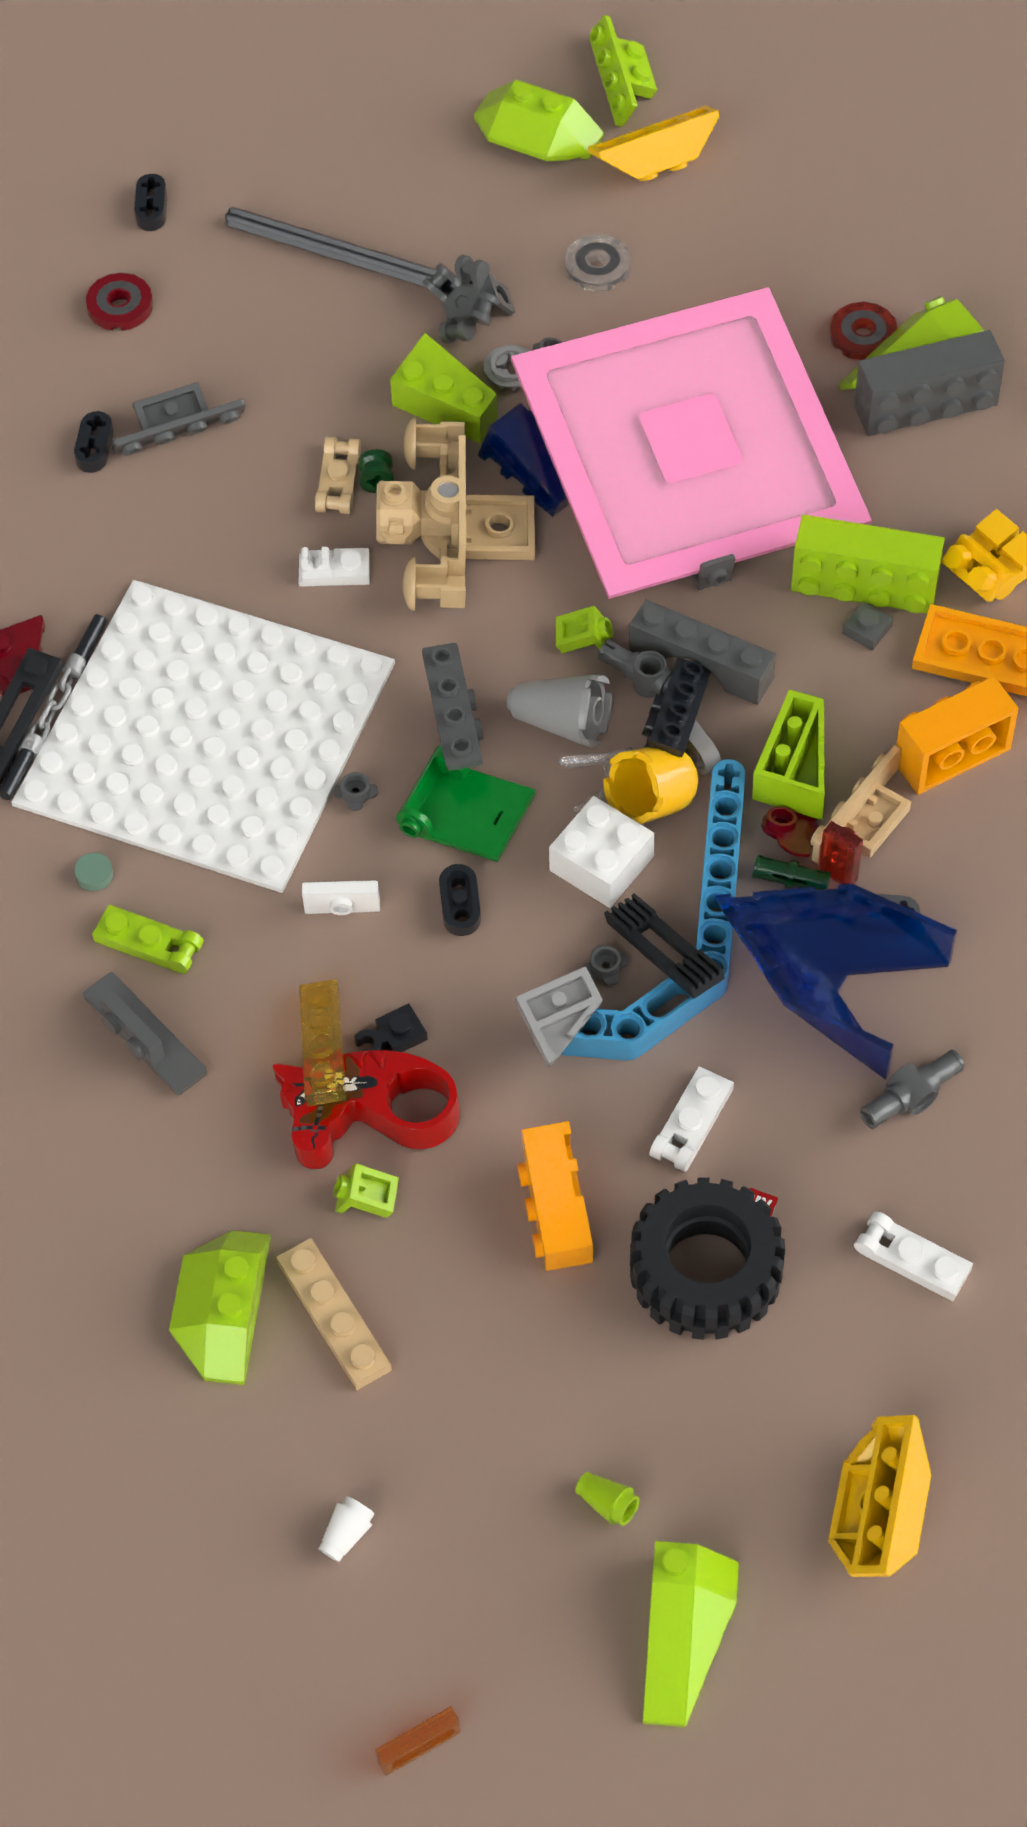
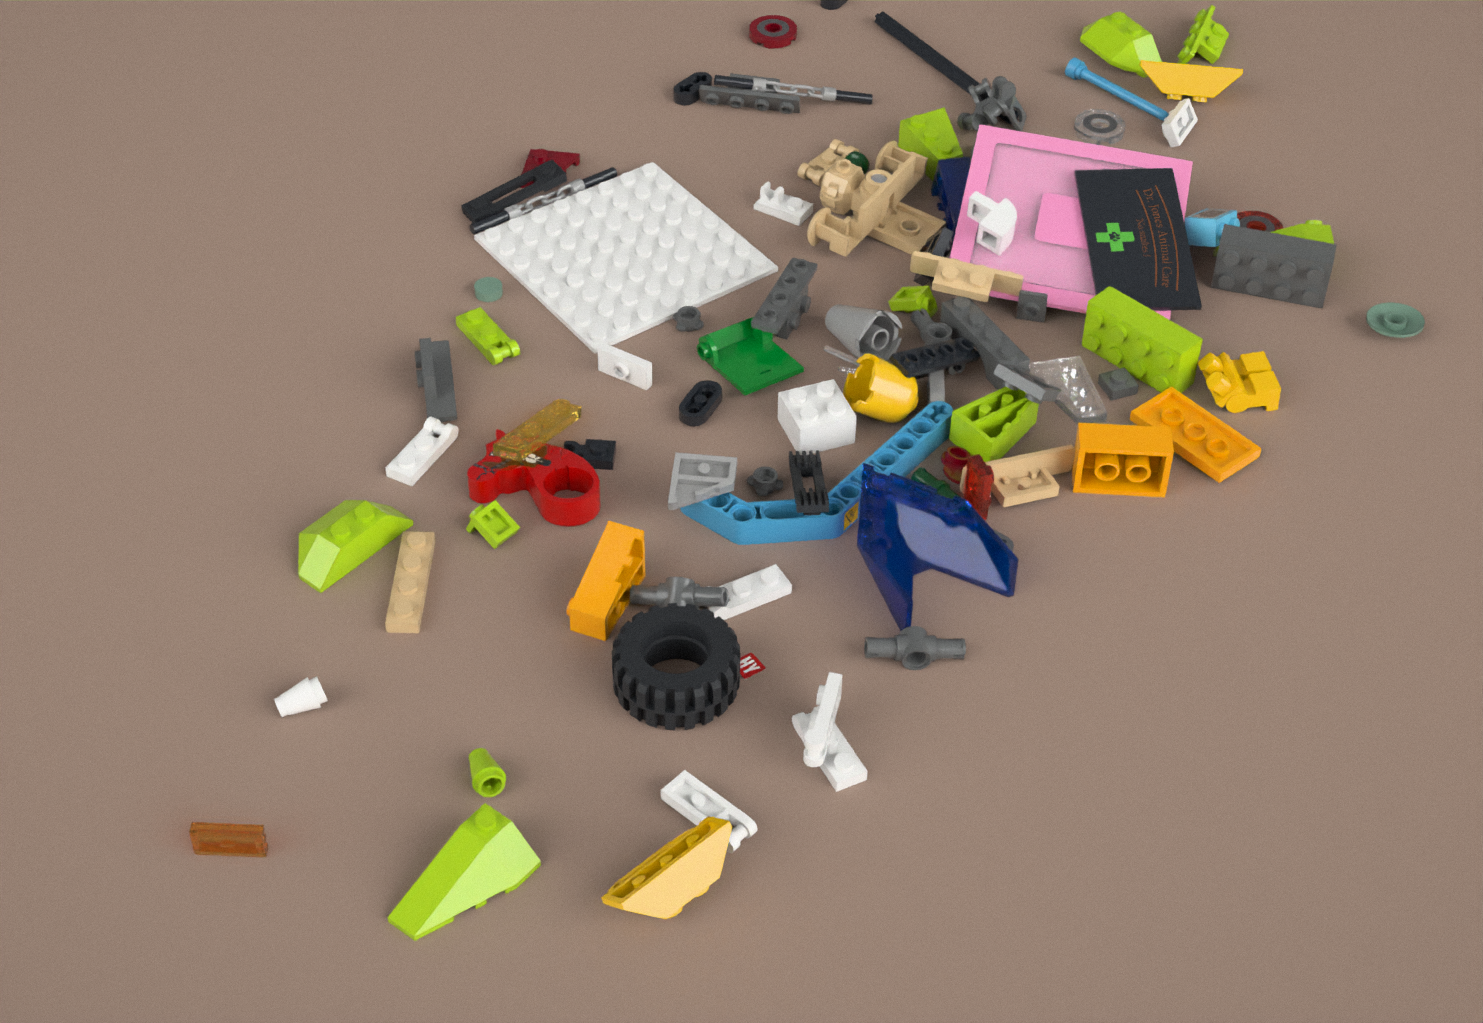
camera: 30 degrees right, 15 degrees down
(186, 404) = (827, 93): none -> piece
(205, 1140) = (422, 451): none -> white plate
(519, 188) = (1077, 70): none -> dark azure piece
(566, 559) = (939, 245): none -> black wing
(625, 482) = (995, 221): none -> white brick
(636, 584) = (965, 278): none -> tan bracket
(637, 1167) = (679, 591): none -> dark grey pin
(682, 215) = (1179, 123): none -> white plate
(773, 424) = (1138, 236): none -> black piece
(809, 695) = (1034, 386): none -> plate
(828, 661) = (1078, 394): none -> clear wing
(830, 359) = (1207, 226): none -> medium azure brick
(851, 1401) = (698, 801): none -> white plate
(902, 1235) = (822, 721): none -> white plate

